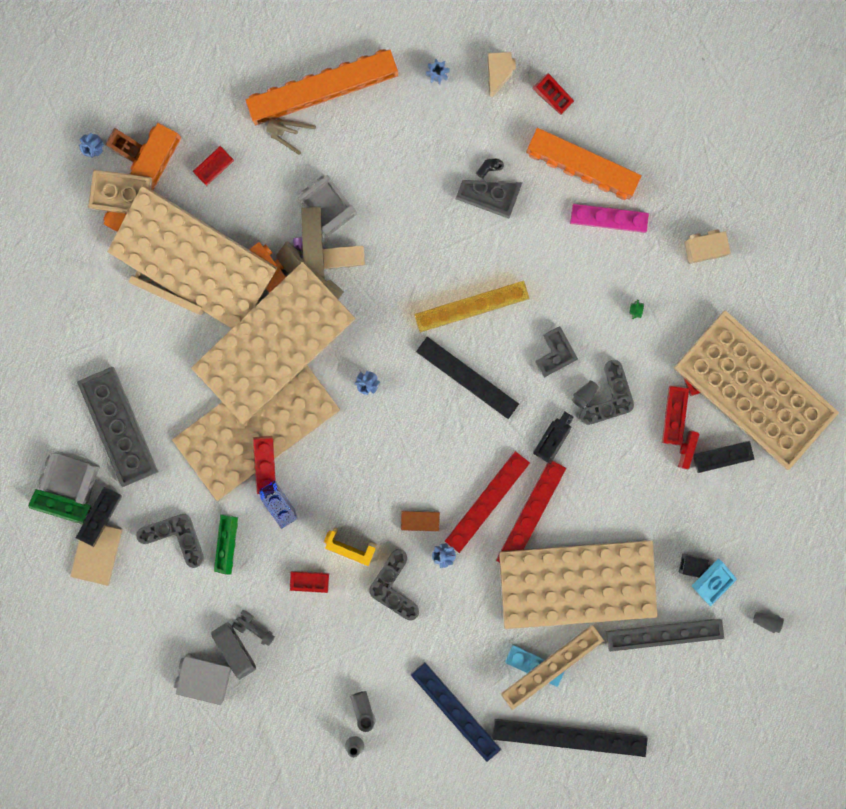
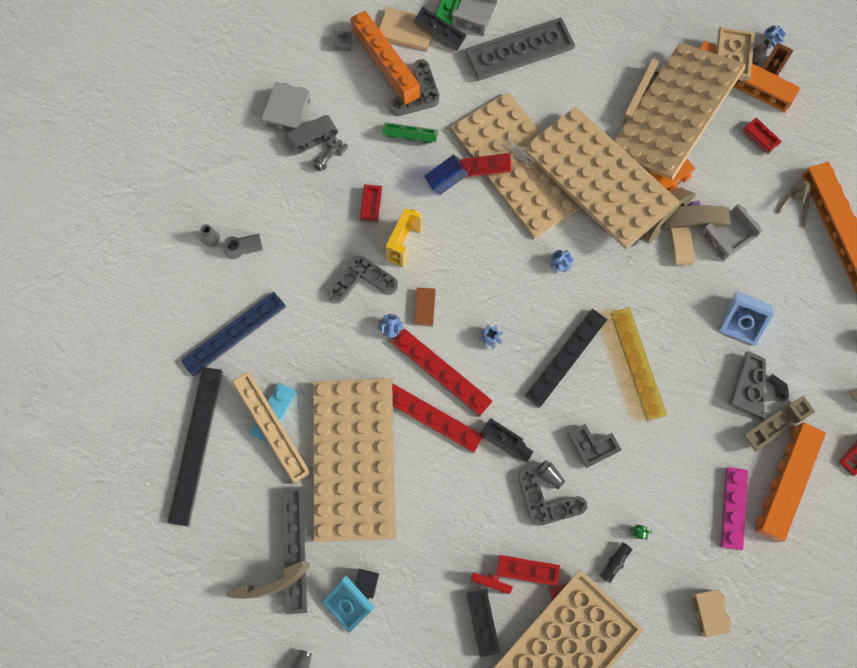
camera: 90 degrees right, 15 degrees down
(114, 163) = (759, 51): none -> dark grey pin
(116, 623) = (342, 40): none -> dark grey plate
(138, 576) = (385, 57): none -> orange brick
(249, 428) = (519, 153): none -> clear pin
(420, 195) = (746, 318): none -> light blue slope
(447, 459) = (493, 332): none -> medium blue gear
(527, 172) = (779, 423): none -> dark tan slope
(664, 332) = (616, 562): none -> black pin
(707, 673) = (291, 575): none -> dark tan slope

